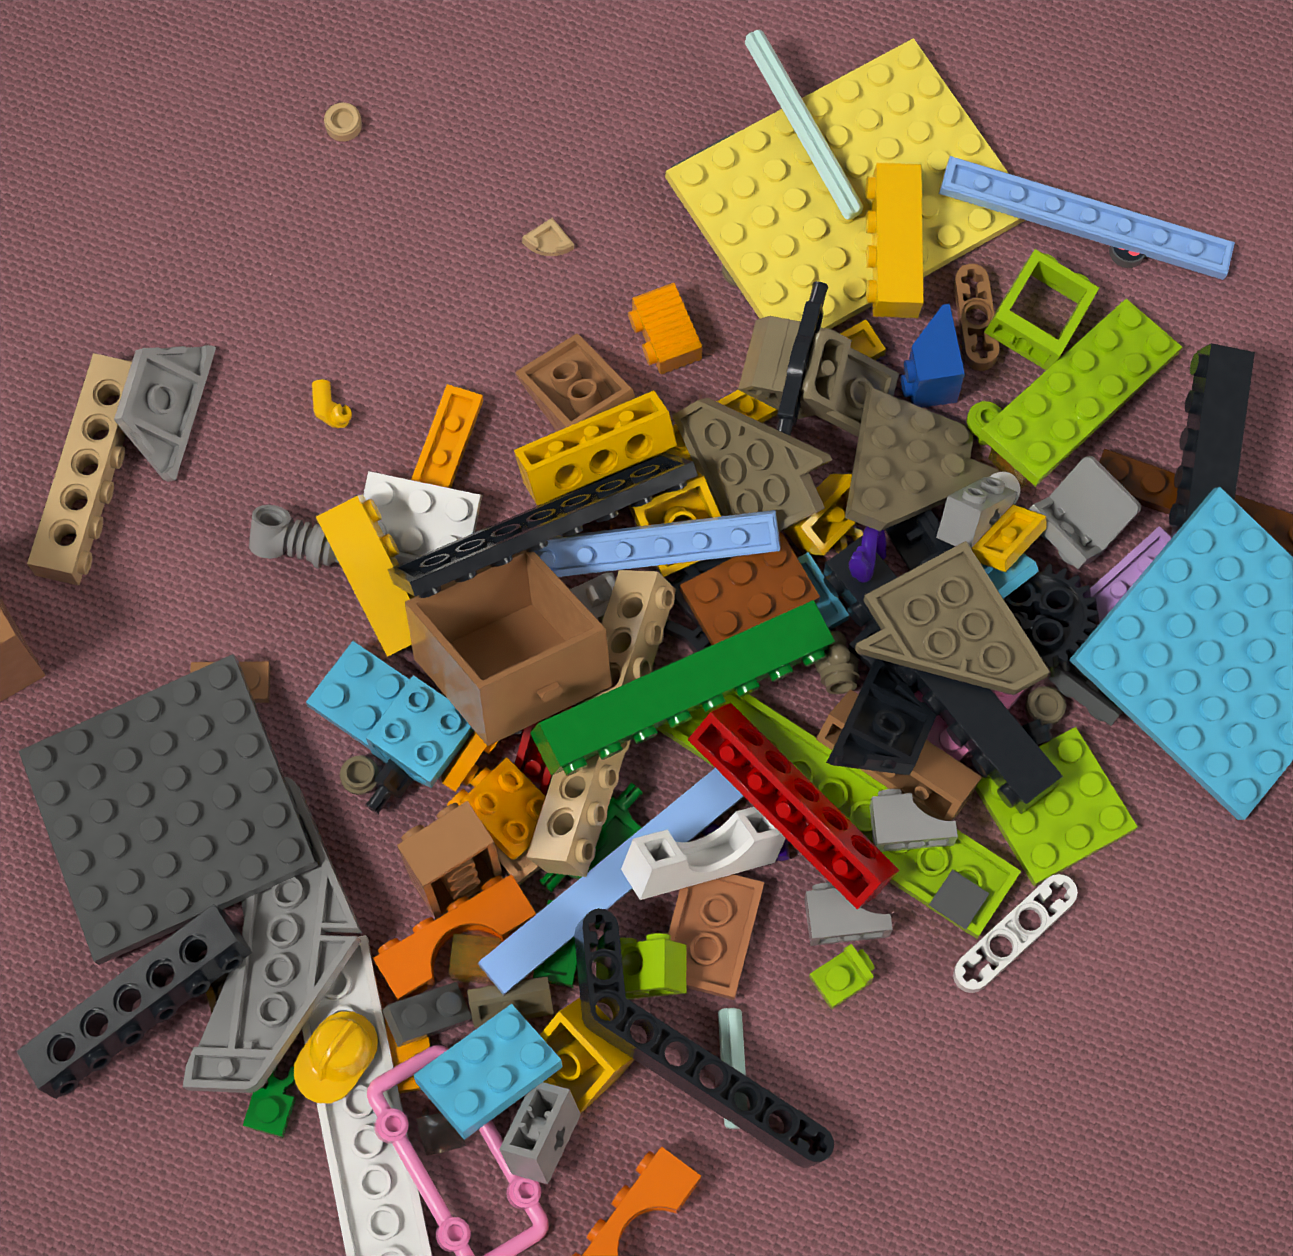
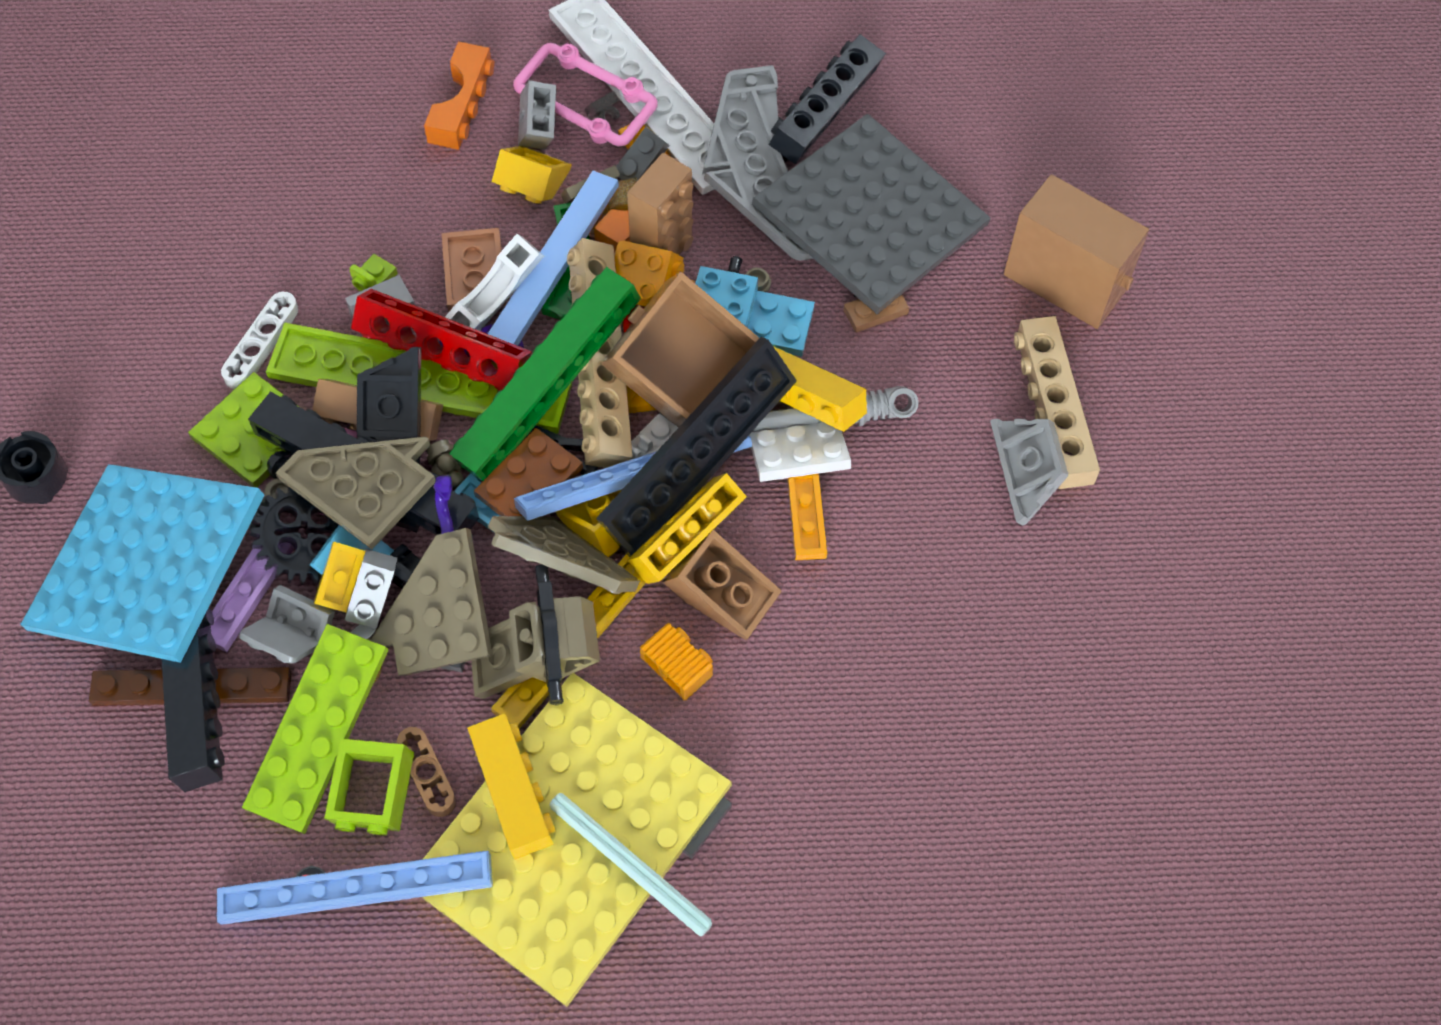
camera: 155 degrees right, 10 degrees down
(270, 1107) = (712, 89): green plate -> none
(326, 409) = (910, 510): yellow arm -> none
(335, 1057) = (687, 118): yellow piece -> none
(342, 122) = (1021, 741): tan tile -> none
(488, 1071) = (583, 130): medium azure plate -> none
(549, 239) = (805, 706): tan tile -> none
(661, 971) = (504, 217): lime brick -> none
(693, 1056) = (456, 173): black beam -> none
(733, 1050) = (428, 201): light aqua axle -> none
(829, 525) = (492, 562): yellow brick -> none
(903, 826) = (350, 358): light grey arch -> none
(934, 364) = (445, 697): blue slope -> none
(959, 899) = (305, 338): dark grey sticker -> none
(980, 415) = (391, 683): lime plate -> none

